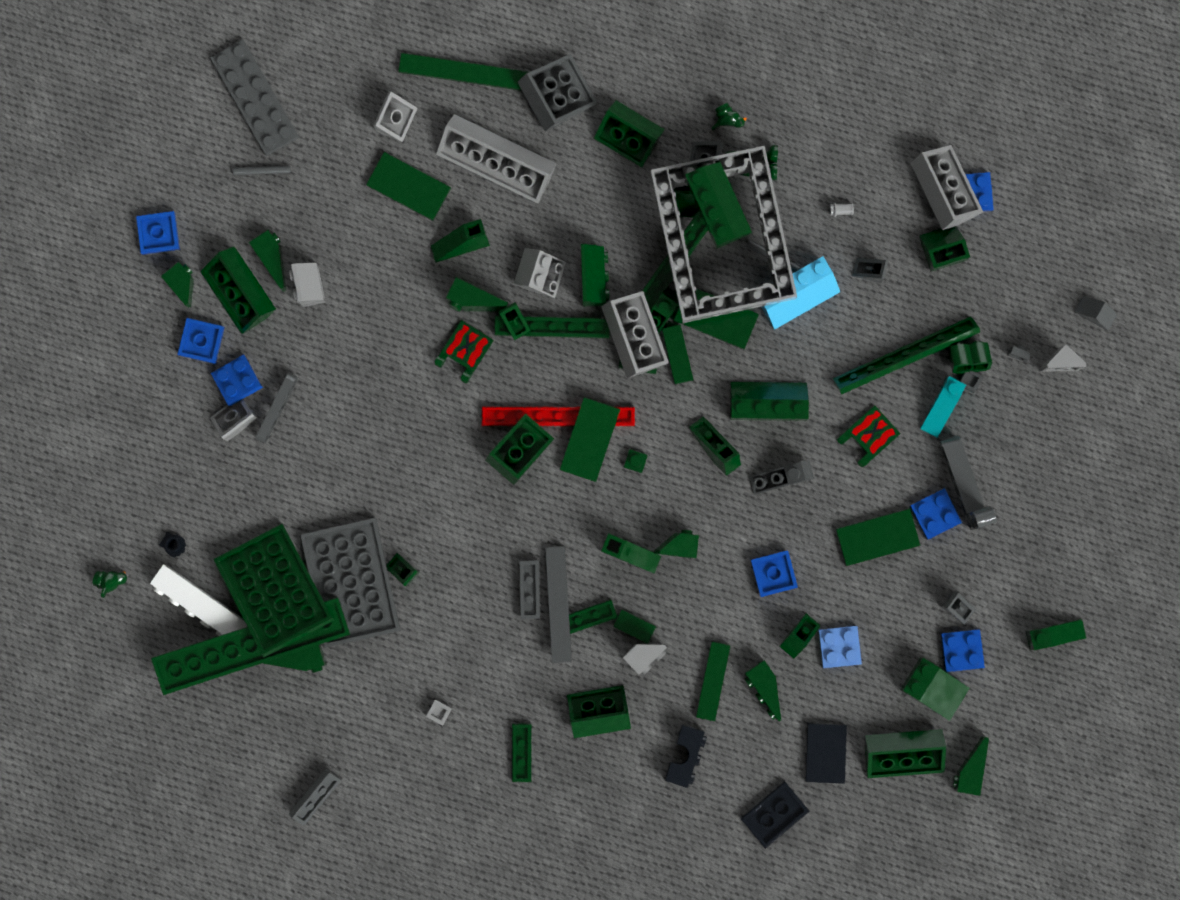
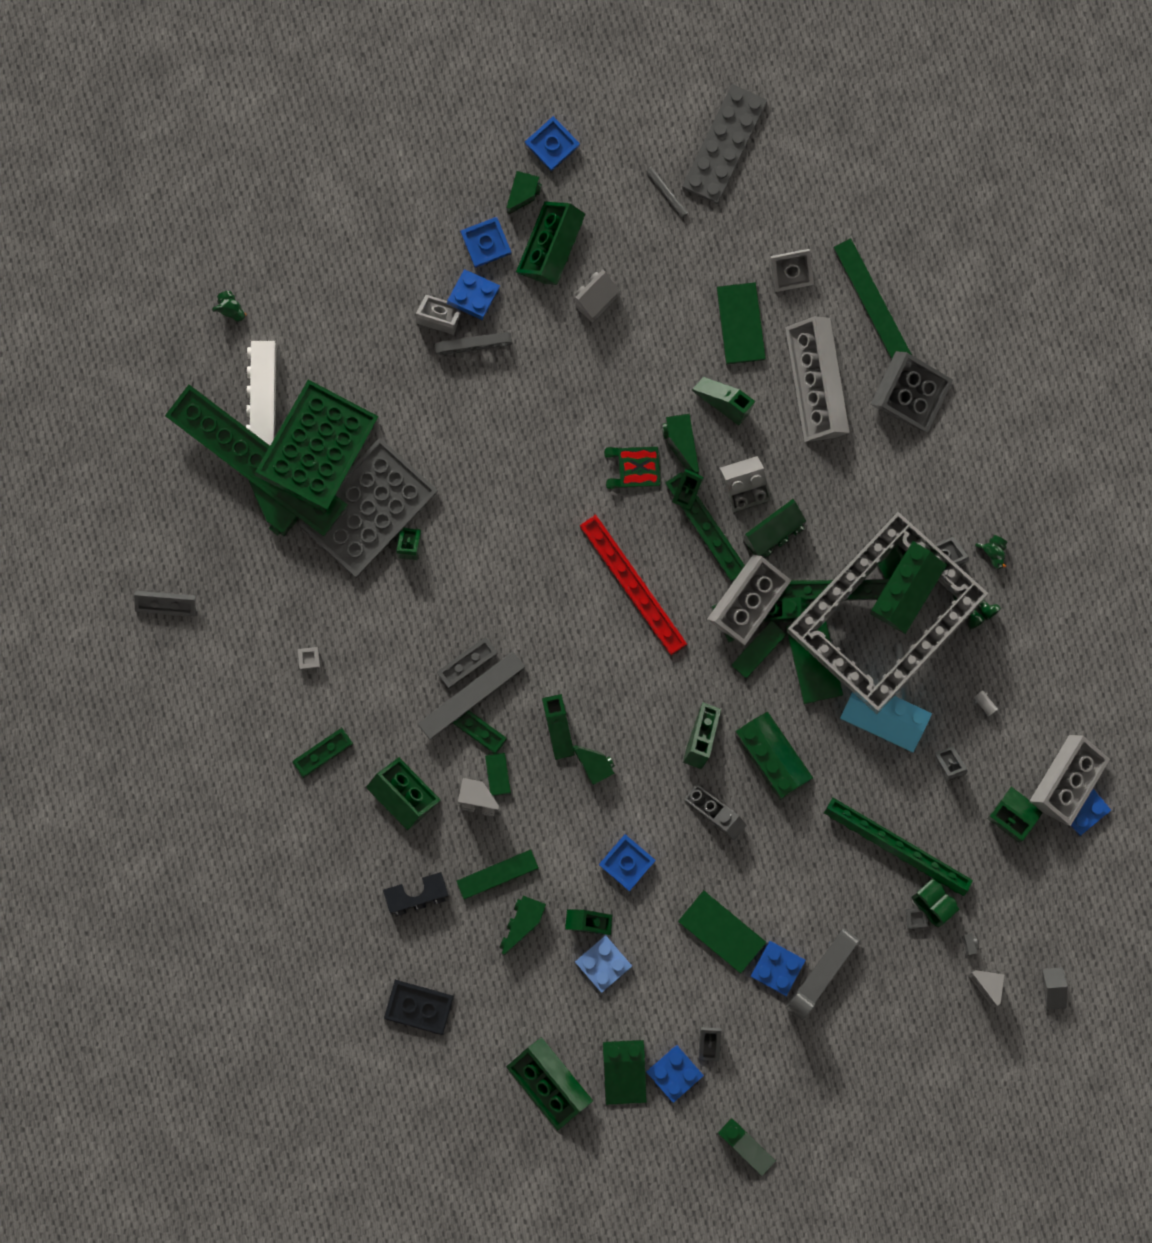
camera: 55 degrees right, 5 degrees down
(173, 544) = (297, 338): black animal -> none
(270, 254) = (599, 249): dark green slope -> none
(519, 449) = (581, 570): dark green slope -> none
(589, 439) = (632, 624): dark green tile -> none
(628, 133) = (920, 476): dark green slope -> none
(635, 461) = (641, 677): dark green plate -> none
(826, 753) = (502, 1015): black tile -> none
(872, 433) = (809, 864): flag -> none
(943, 406) = (875, 909): teal slope -> none
(971, 772) = (572, 1153): dark green slope -> none

